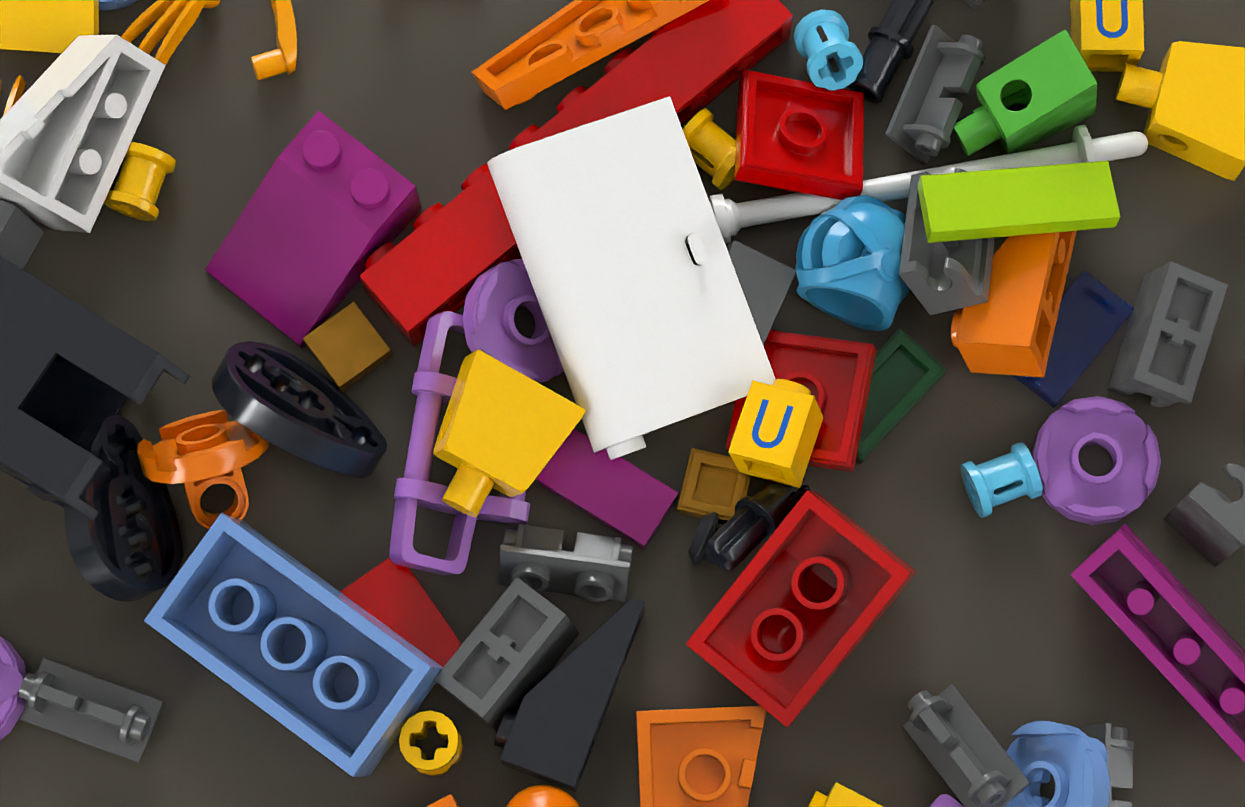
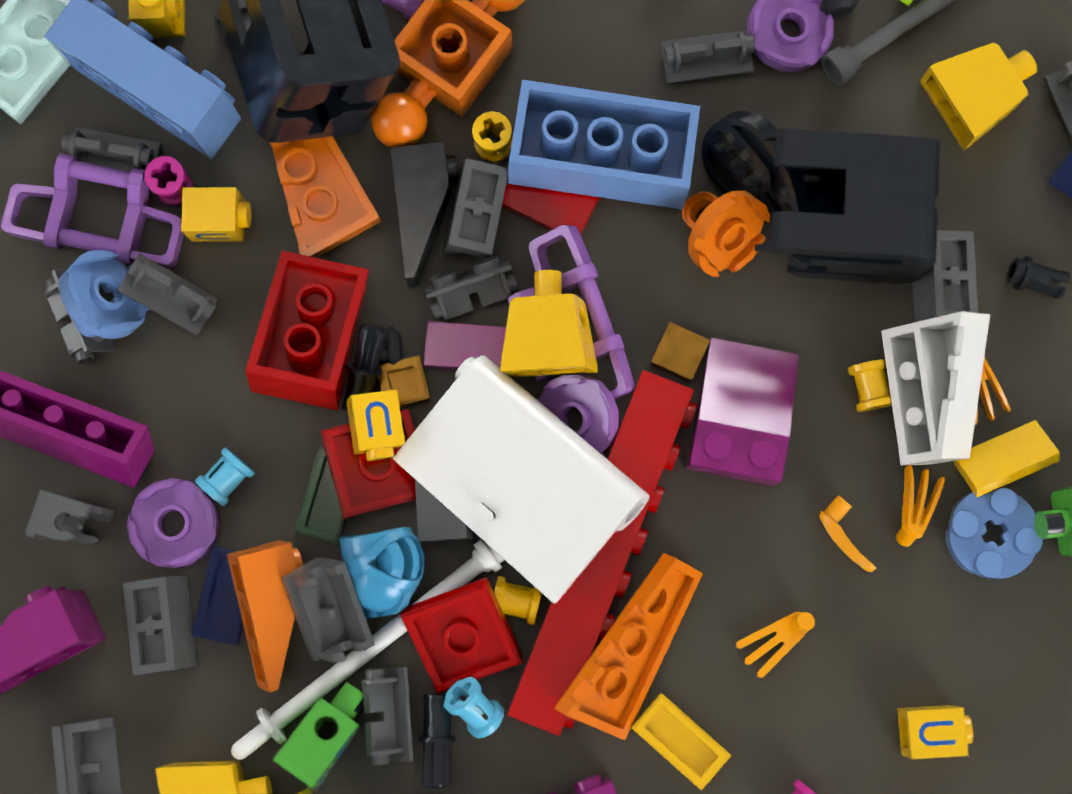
camera: 155 degrees right, 5 degrees up
(297, 409) = (663, 299): black piece -> none
(1018, 201) = (291, 655): lime tile -> none

